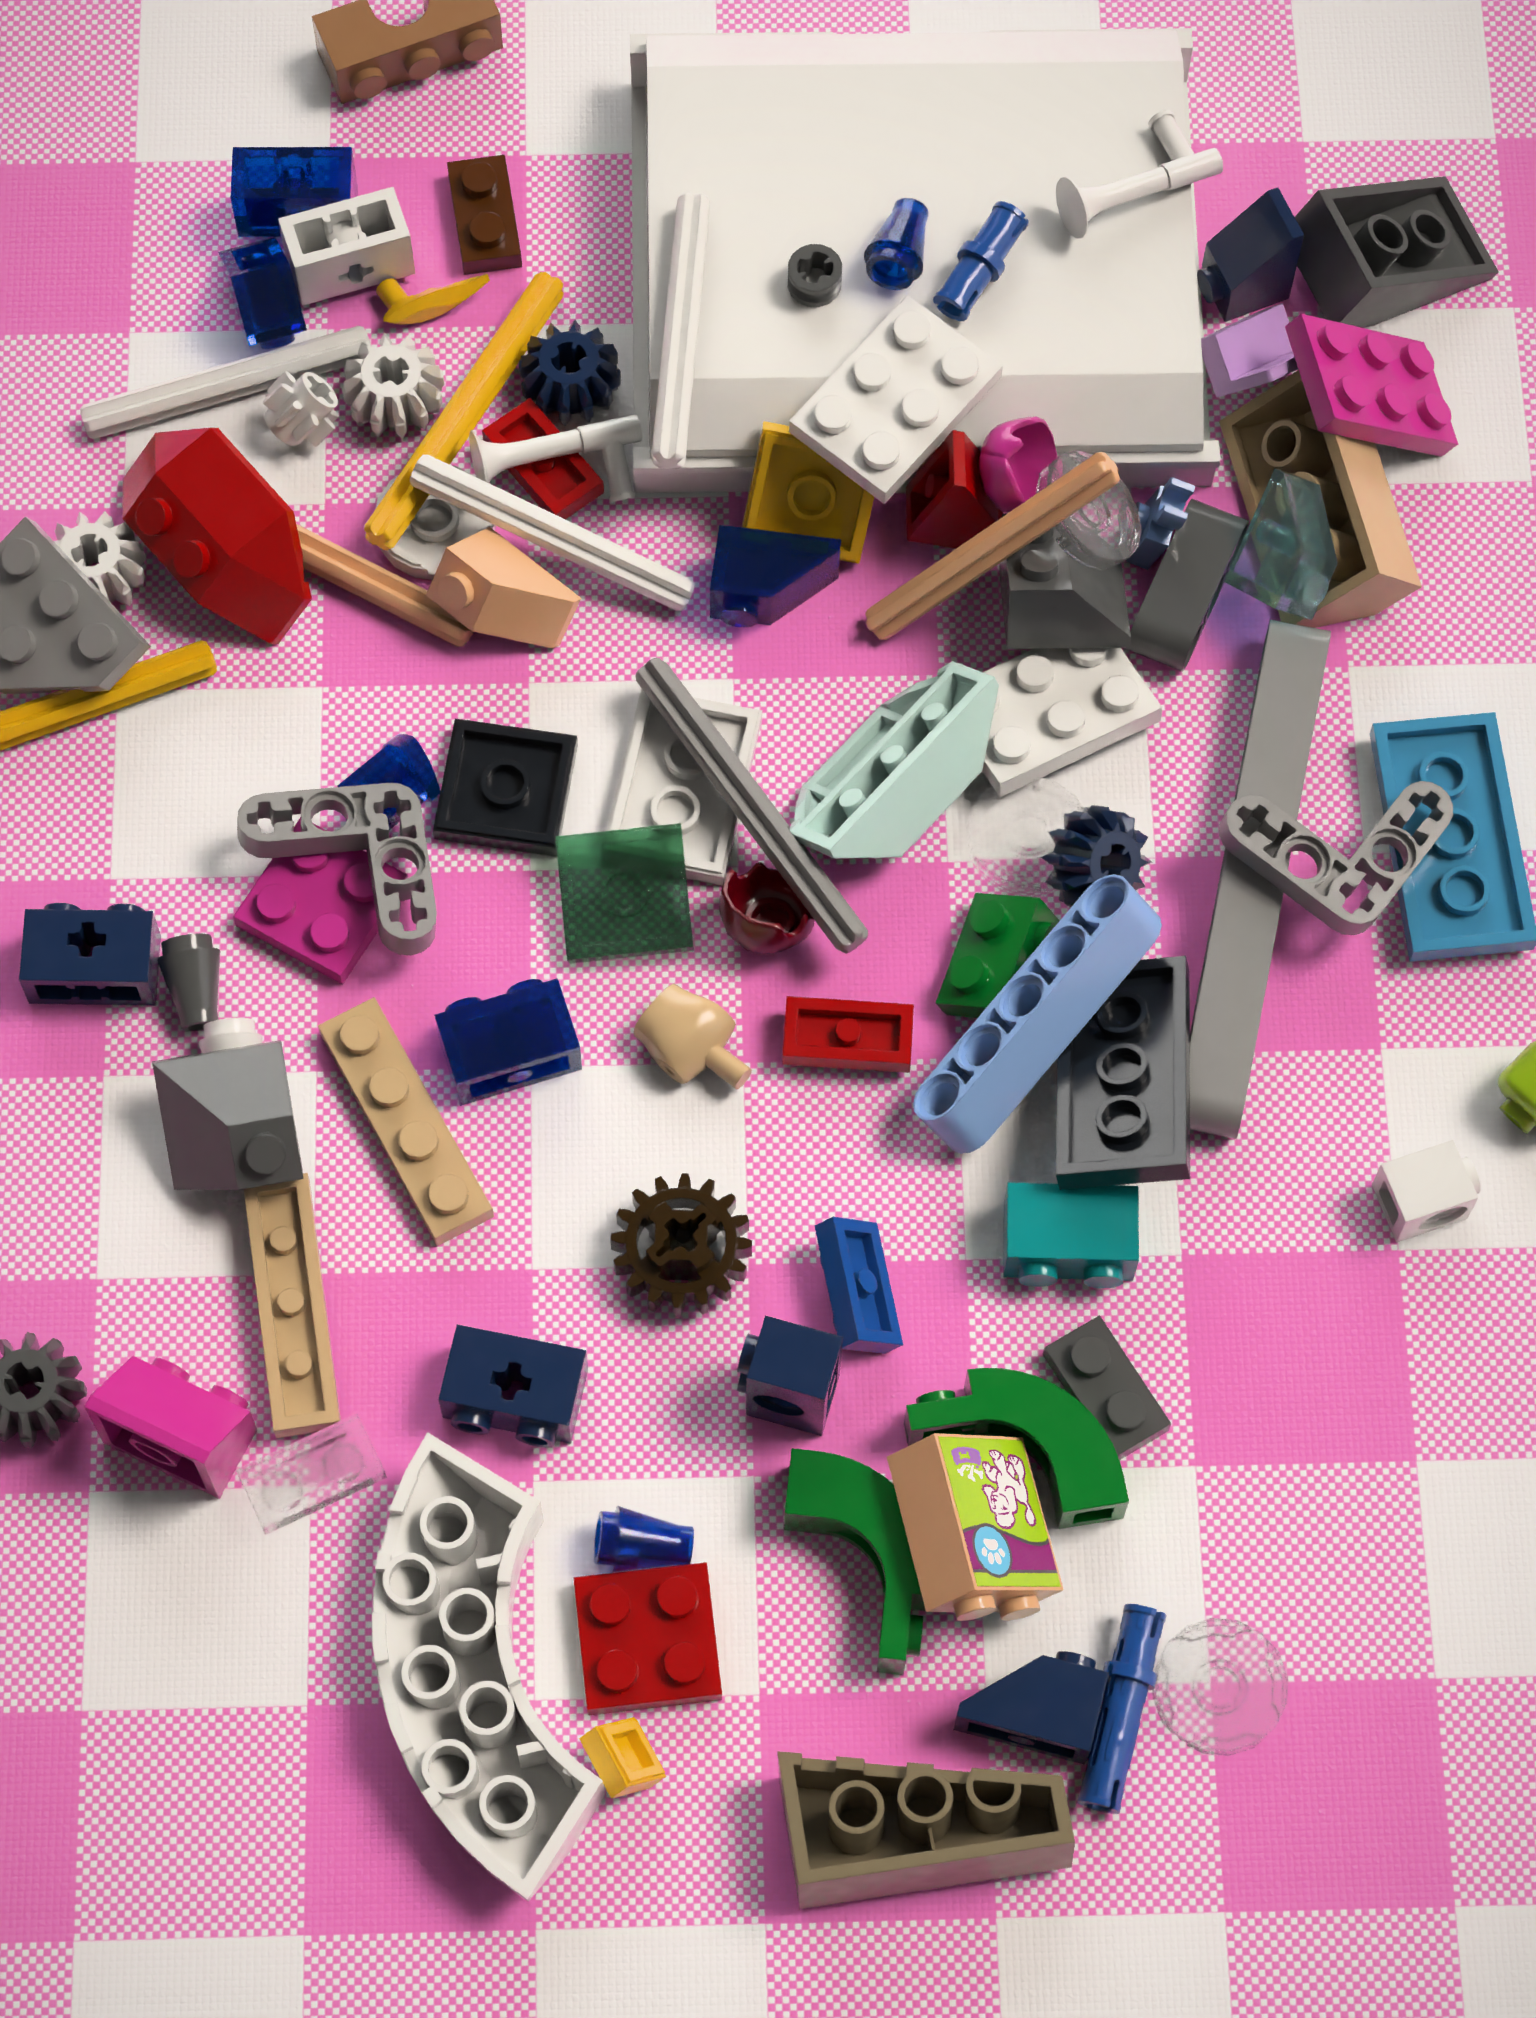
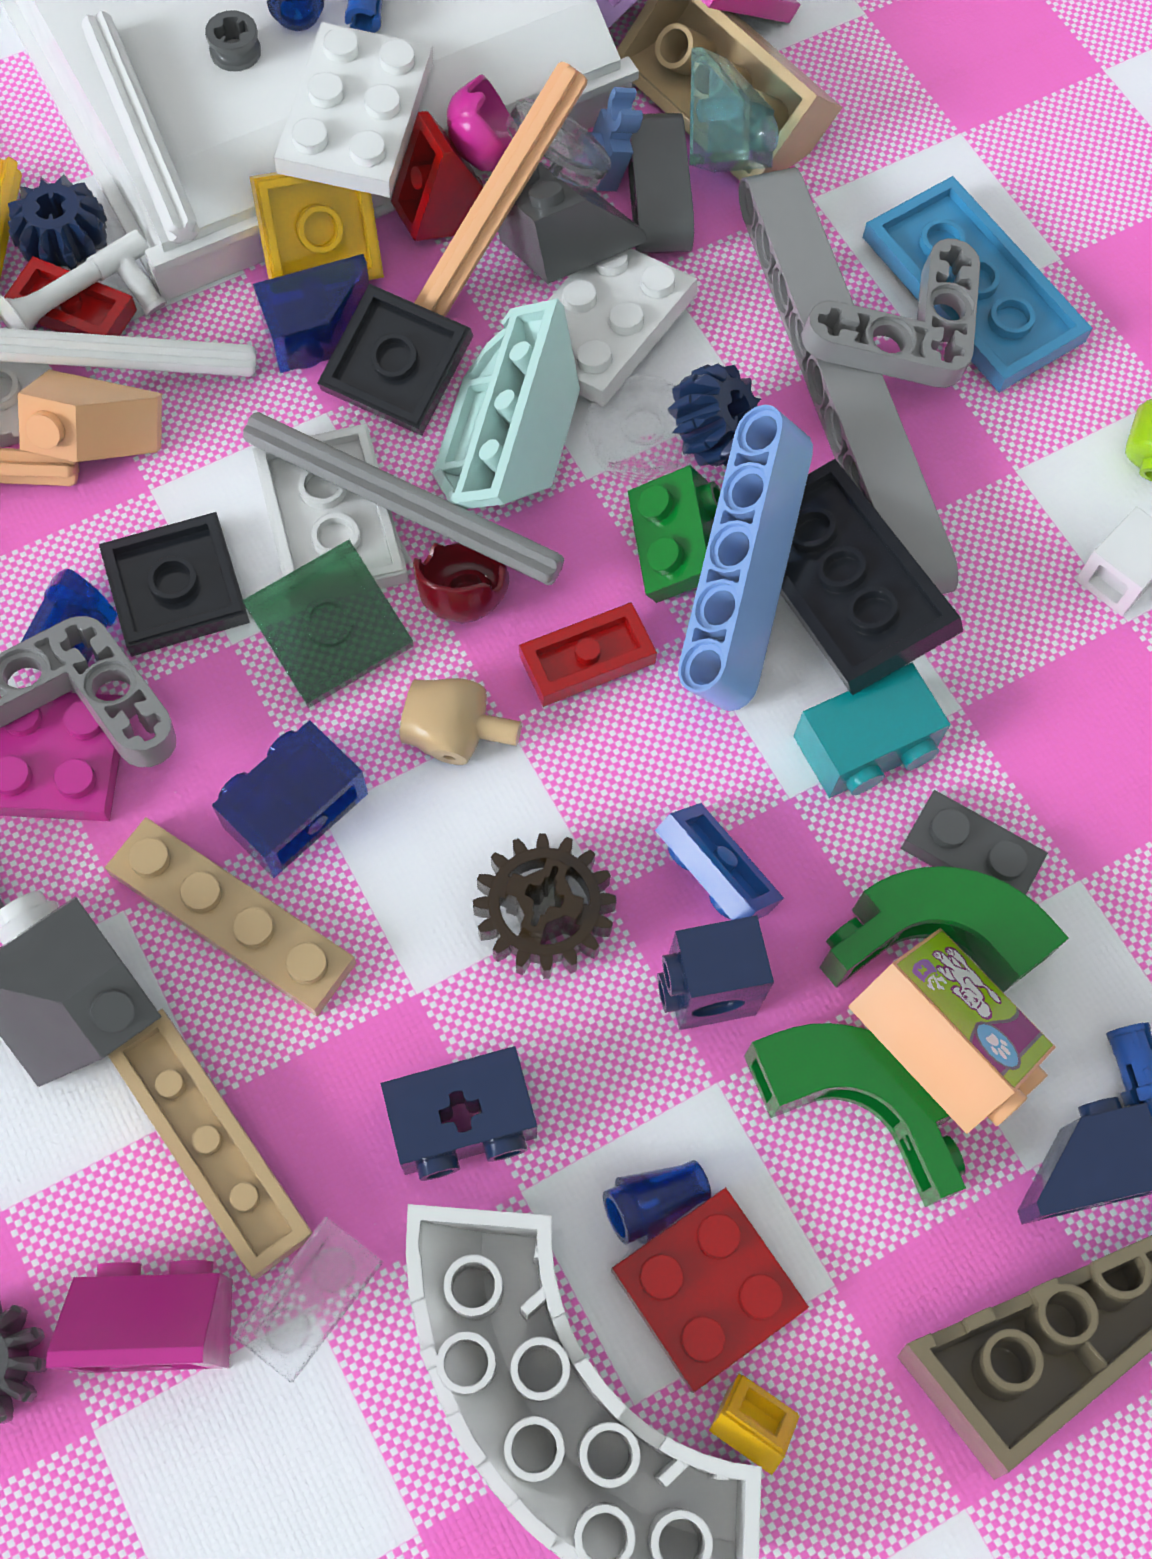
camera: 30 degrees left, 0 degrees up
(823, 658) = (395, 359): none -> black tile

